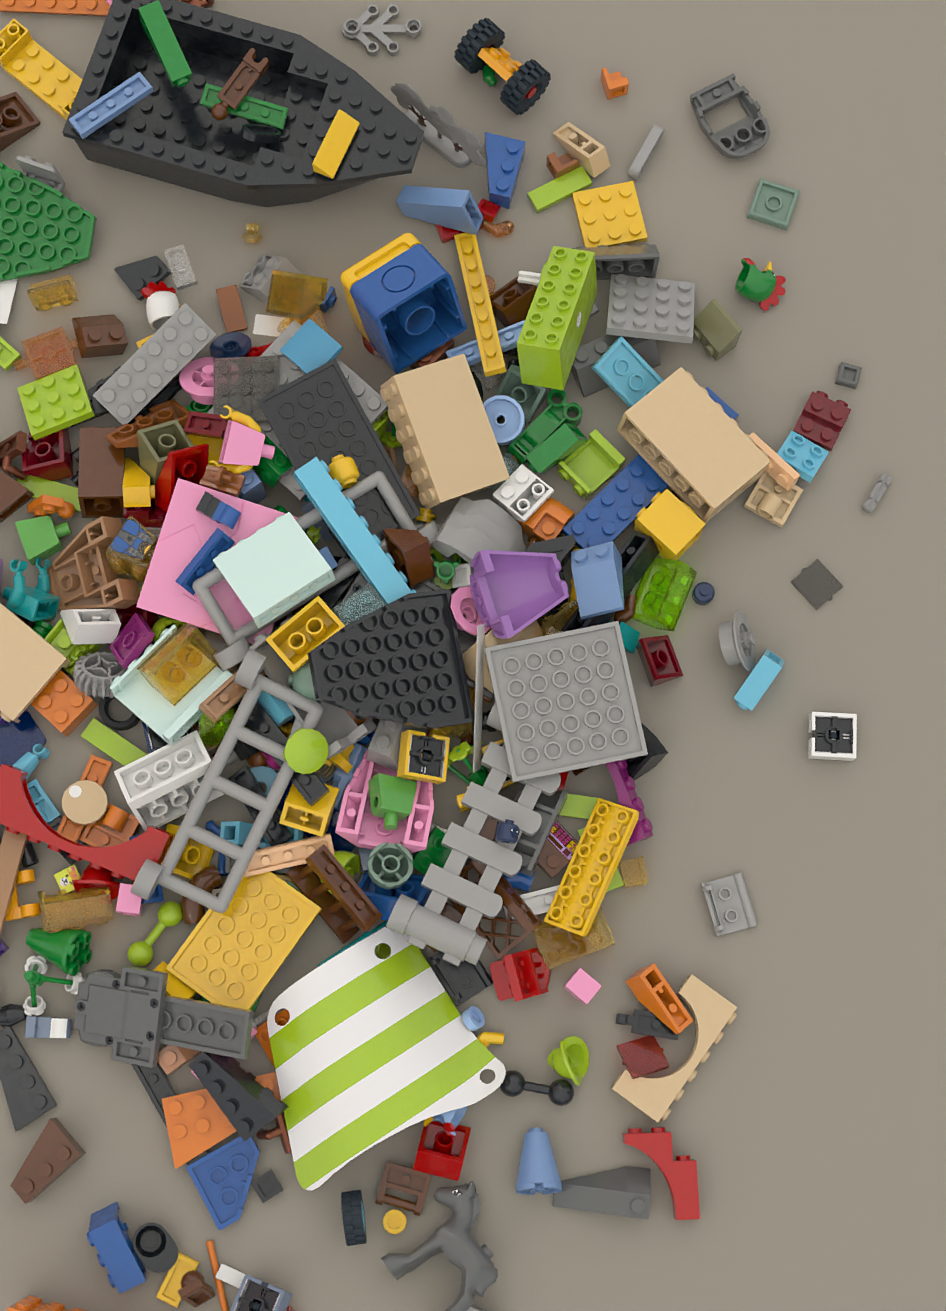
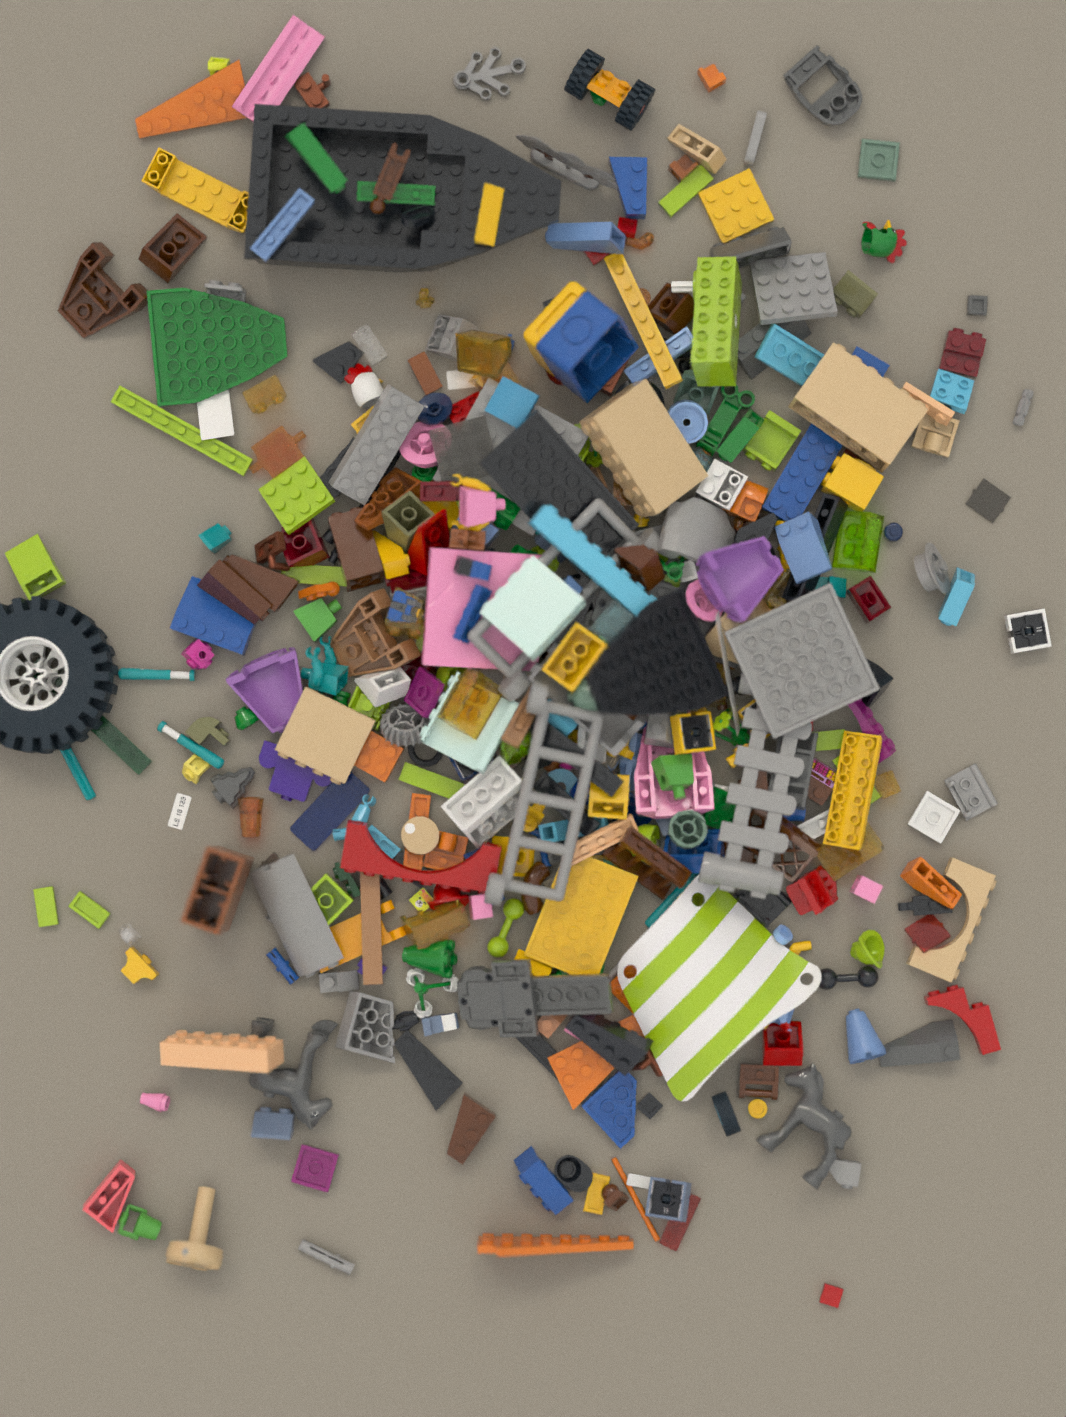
camera: 10 degrees left, 10 degrees up
(100, 335) = (317, 425): reddish brown slope -> none
(218, 811) = (534, 817): none -> yellow hips
(306, 751) = (598, 754): lime dish -> none
(344, 470) = (568, 506): yellow head -> none
(507, 832) = (779, 781): dark blue piece -> none
(628, 611) = (833, 557): reddish brown arm -> none
(679, 923) = (933, 817): none -> white plate

